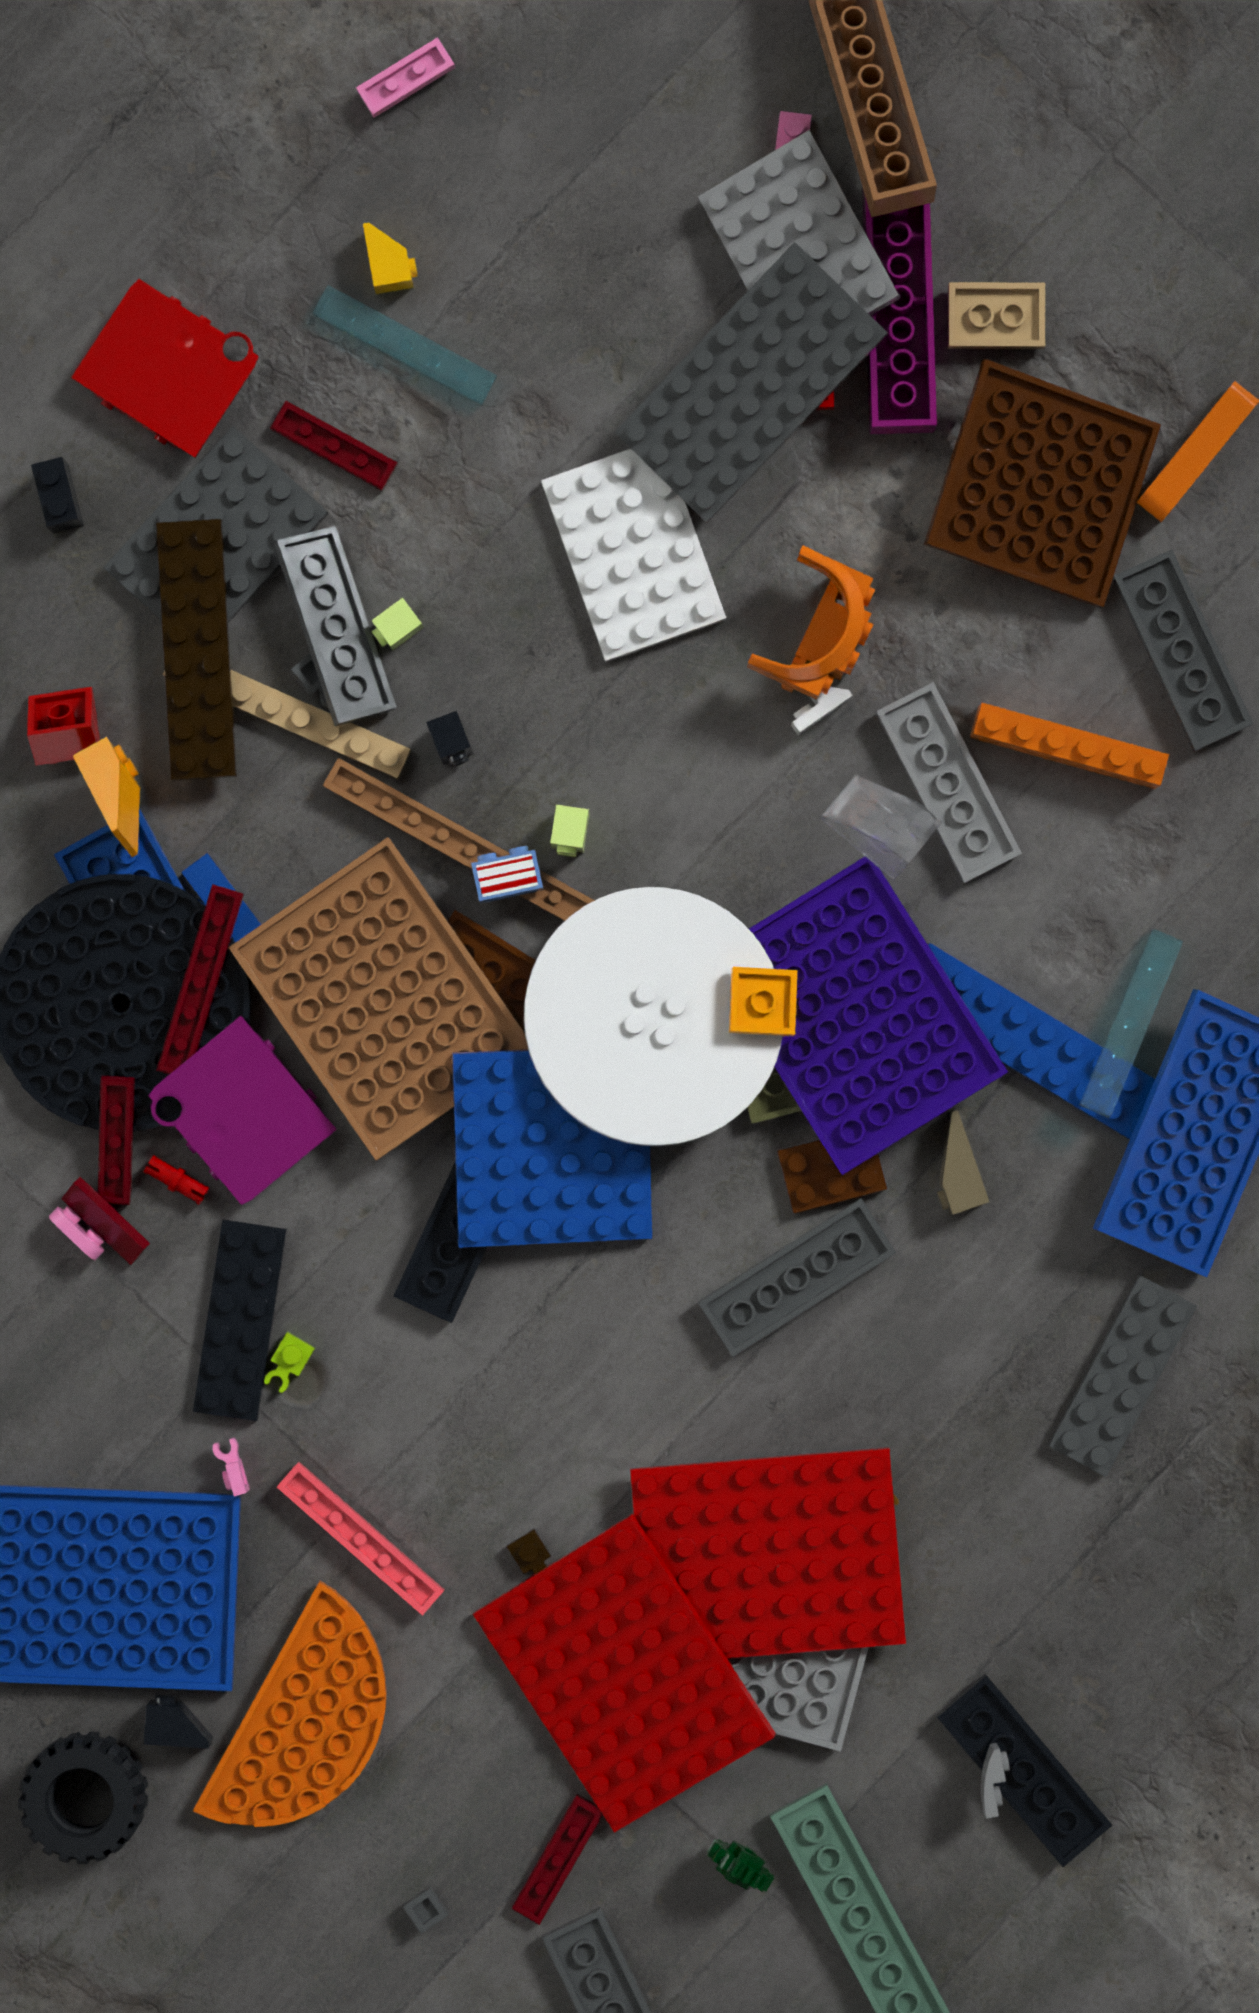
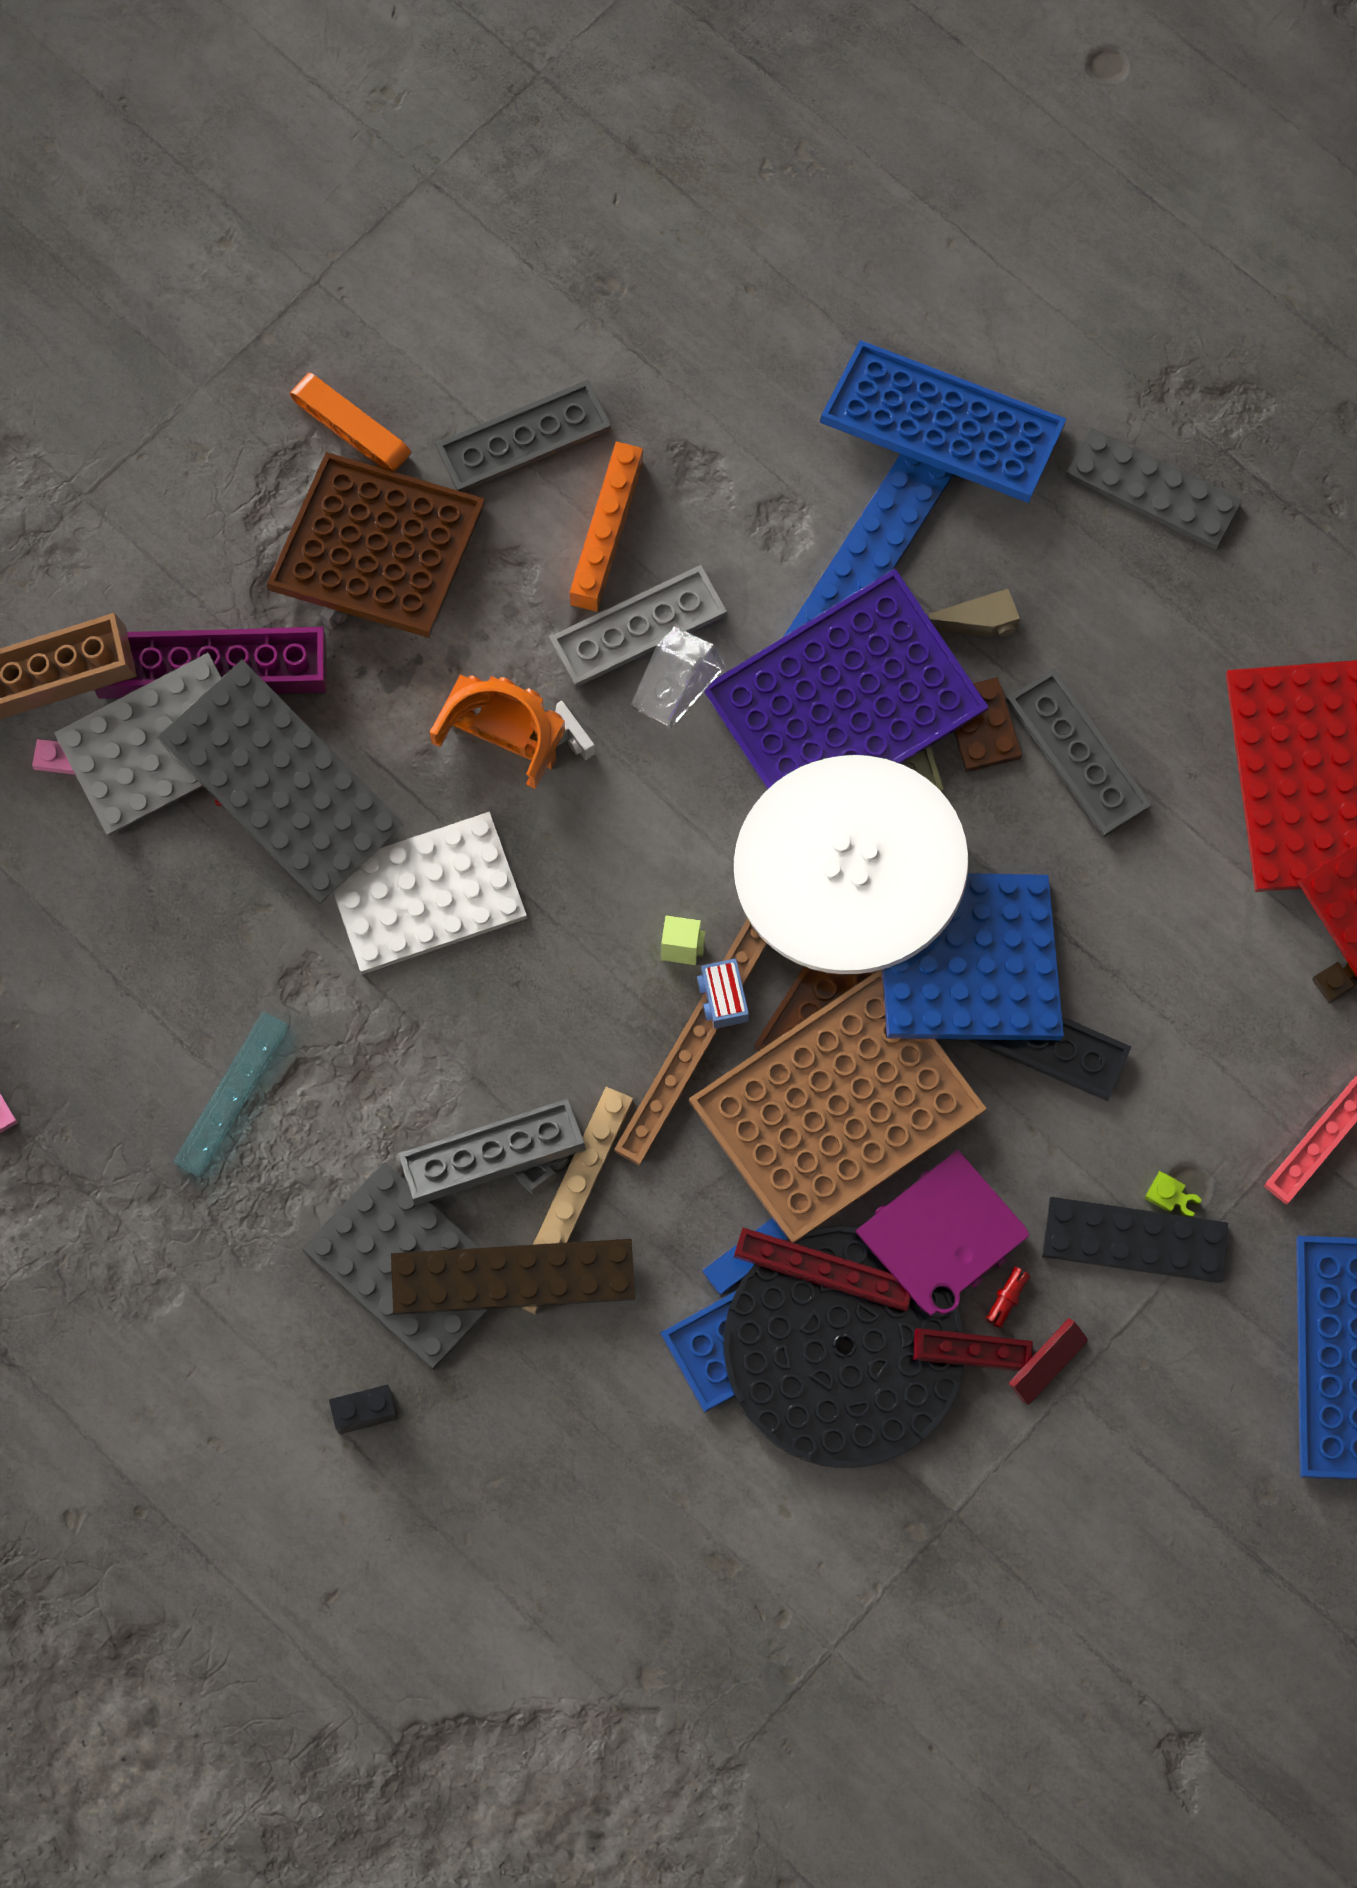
camera: 90 degrees left, 15 degrees down
(61, 724) = (582, 1403): red slope -> none
(68, 1223) = (1050, 1396): bright pink plate -> none
(114, 789) = (636, 1353): light orange slope -> none
(164, 368) = (246, 1309): red piece -> none
(235, 1475) = (1280, 1240): bright pink plate -> none
(334, 446) = (322, 1158): dark red tile -> none
(388, 262) = (152, 1107): yellow slope -> none
(396, 625) = (491, 1098): yellowish green brick -> none
(450, 739) = (599, 1045): black brick -> none
(763, 1001) = (836, 769): light orange plate -> none
(996, 315) = (224, 585): tan plate -> none
(1131, 1023) = (849, 477): clear light blue tile -> none

